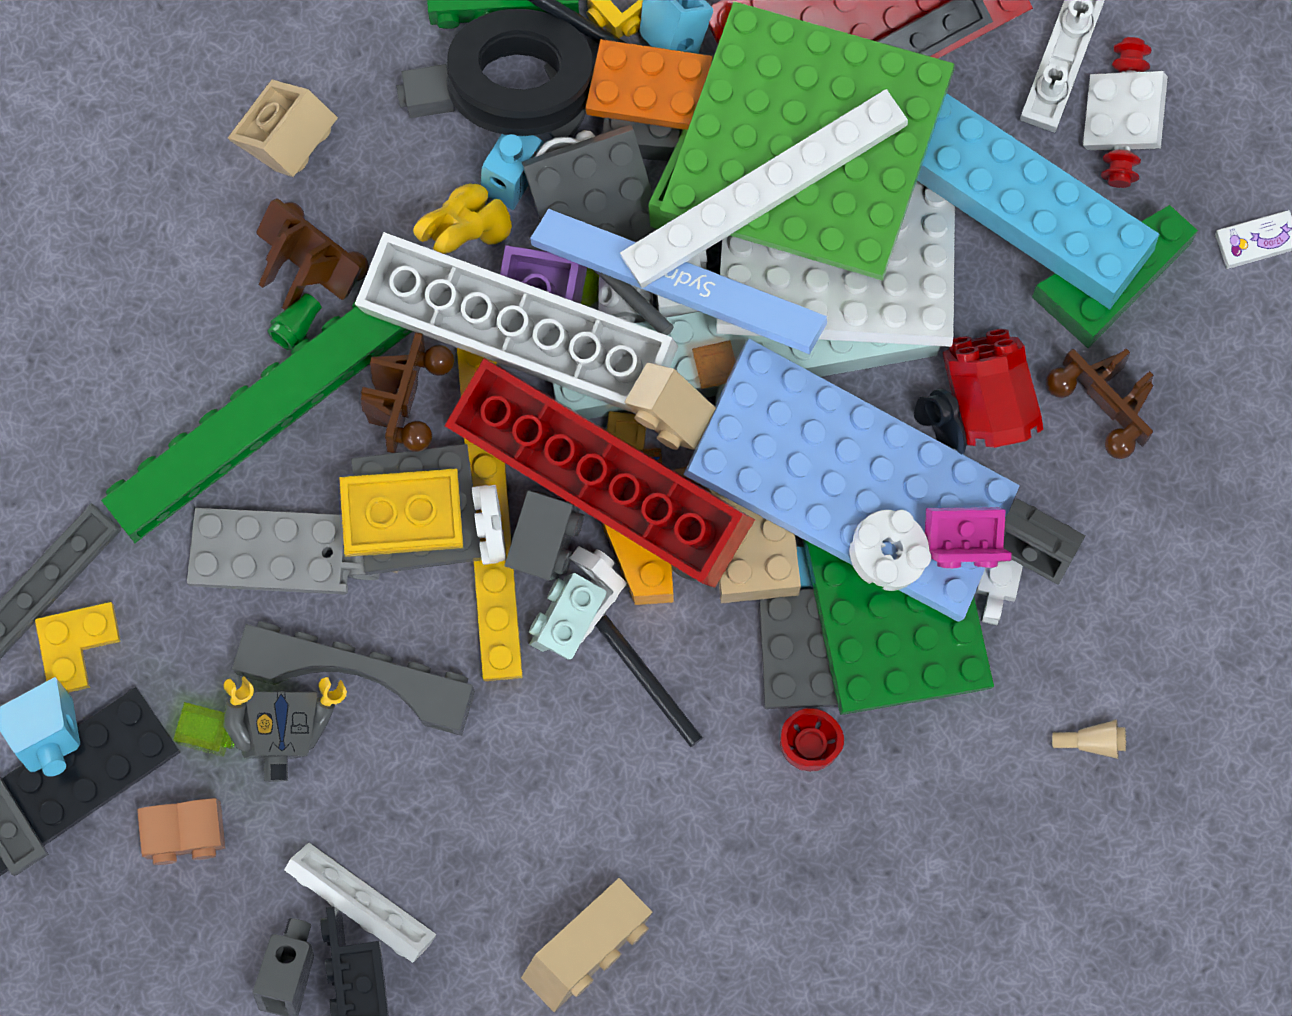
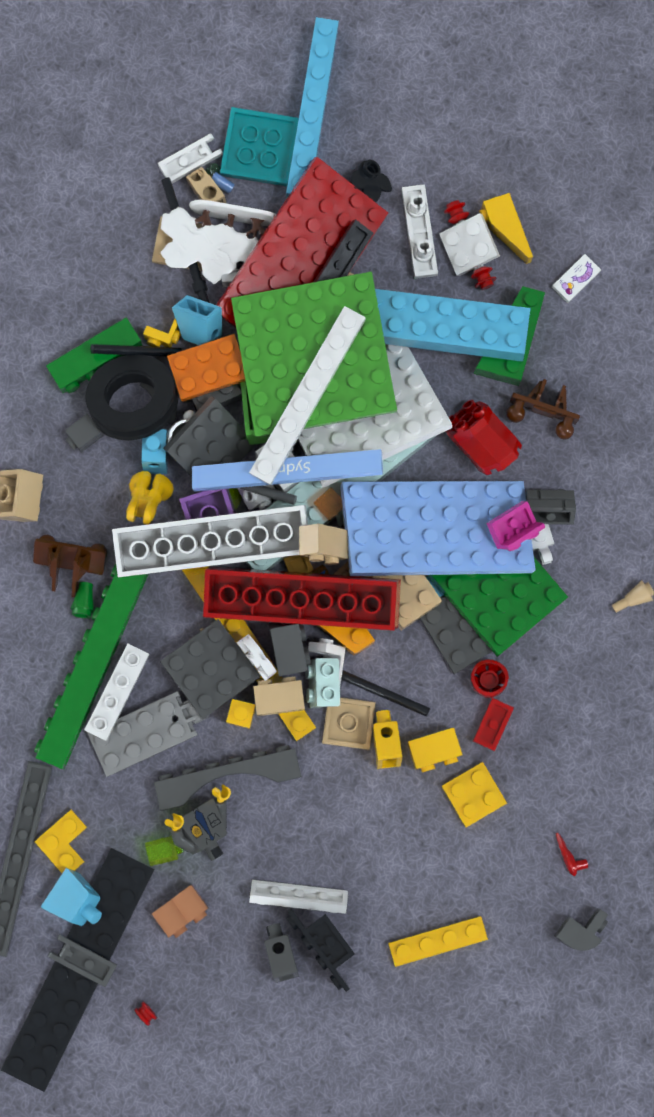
camera: 40 degrees left, 5 degrees up
(49, 948) = (145, 1013): none -> red bush
(266, 469) = (117, 692): none -> white plate
(391, 408) = (161, 598): reddish brown piece -> none
(401, 512) = (205, 676): yellow tile -> none
(425, 597) = (241, 714): none -> yellow brick
(490, 600) = (278, 697): none -> tan brick
(573, 697) = (349, 724): none -> tan tile
(587, 944) = (433, 852): tan wedge -> none
(610, 749) = (388, 749): none -> yellow torso
(674, 799) = (435, 749): none -> yellow brick
(697, 897) = (474, 794): none -> yellow plate
(780, 810) = (493, 724): none -> red plate
(903, 532) = (488, 547): white plate -> none
(942, 412) = (463, 464): black plate -> none
(1194, 106) = (505, 224): none -> yellow slope

